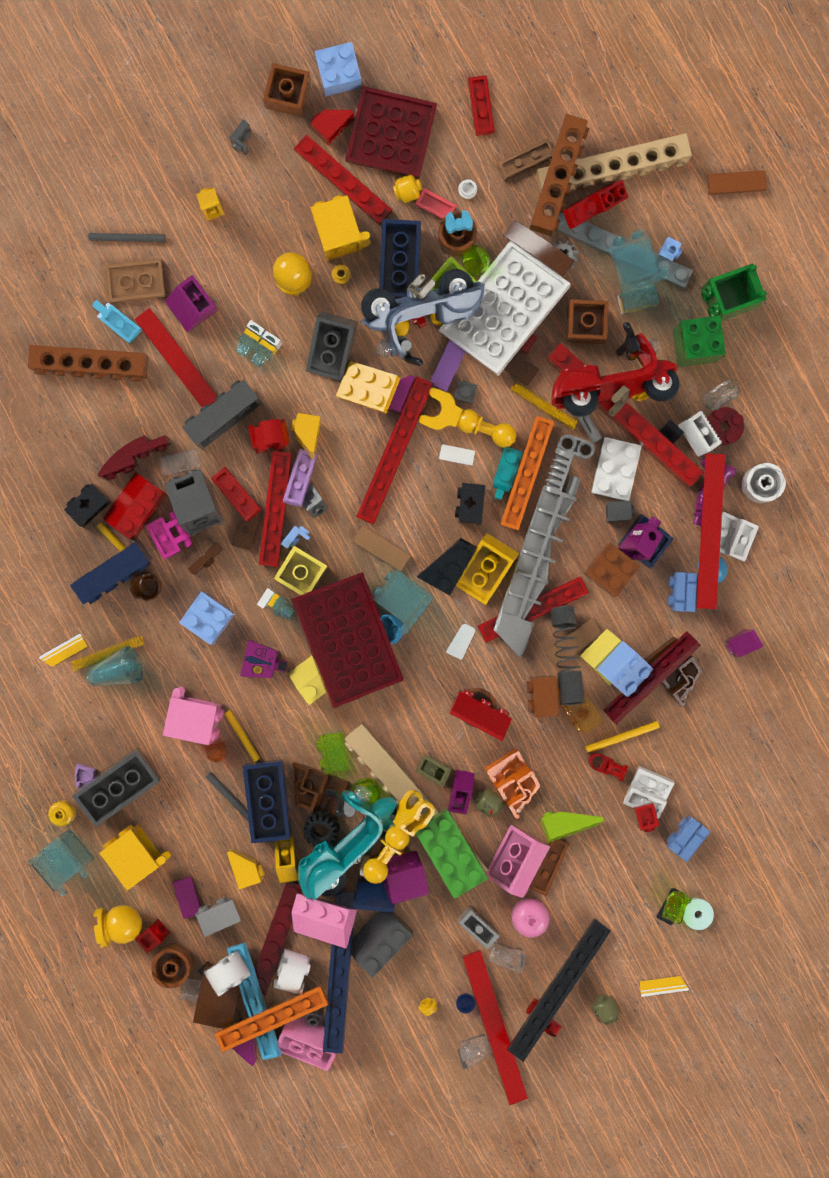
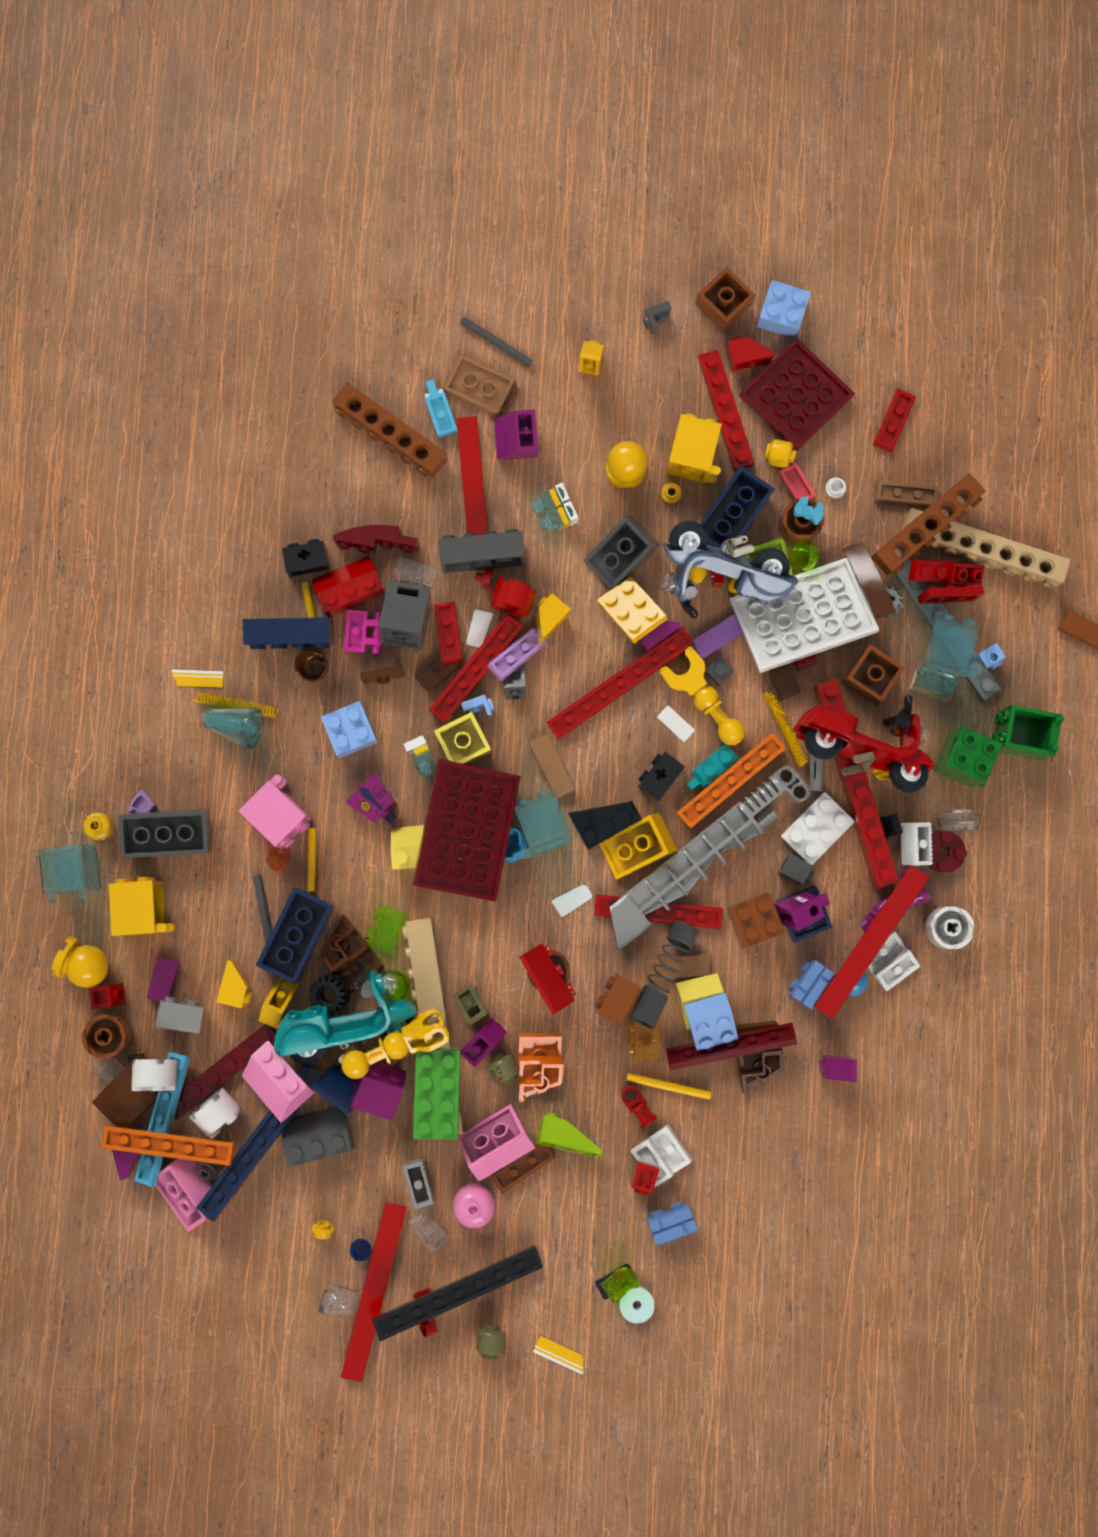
camera: 25 degrees right, 5 degrees down
(237, 433) = (486, 578): none -> red tile
(257, 475) = (478, 627): none -> white sticker
(609, 219) = (950, 594): none -> red plate

